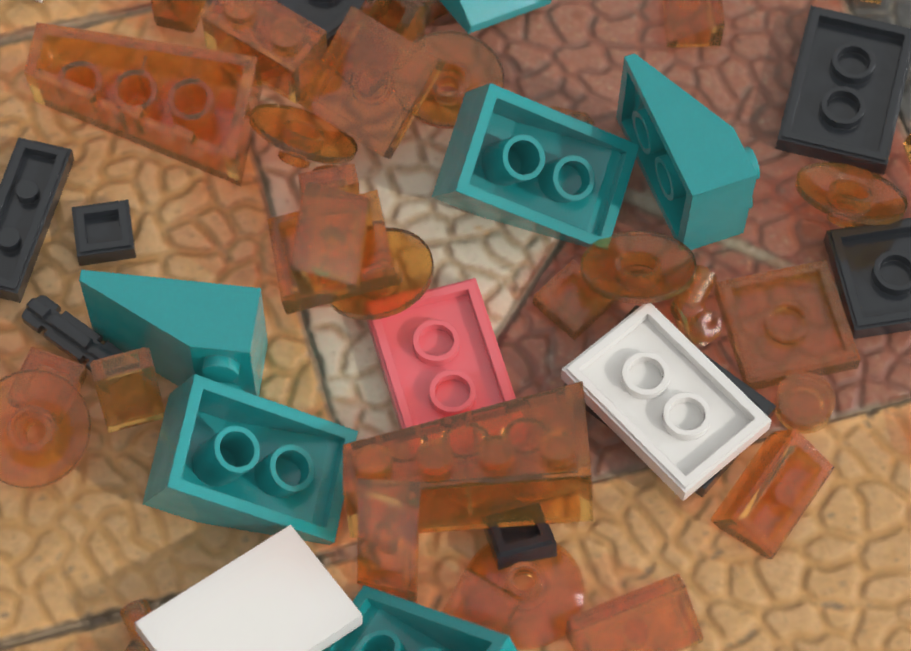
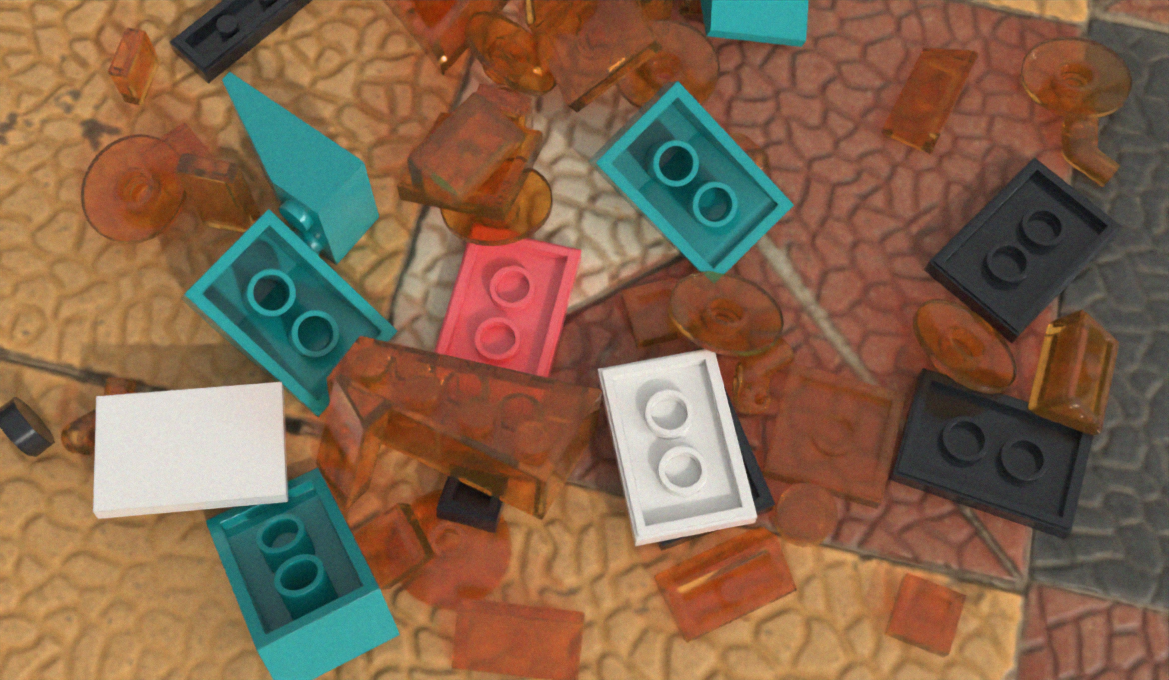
camera: 30 degrees right, 5 degrees up
(66, 331) = (222, 126): black axle -> none
(103, 232) = (306, 58): black tile -> none
(687, 157) = (830, 239): teal slope -> none

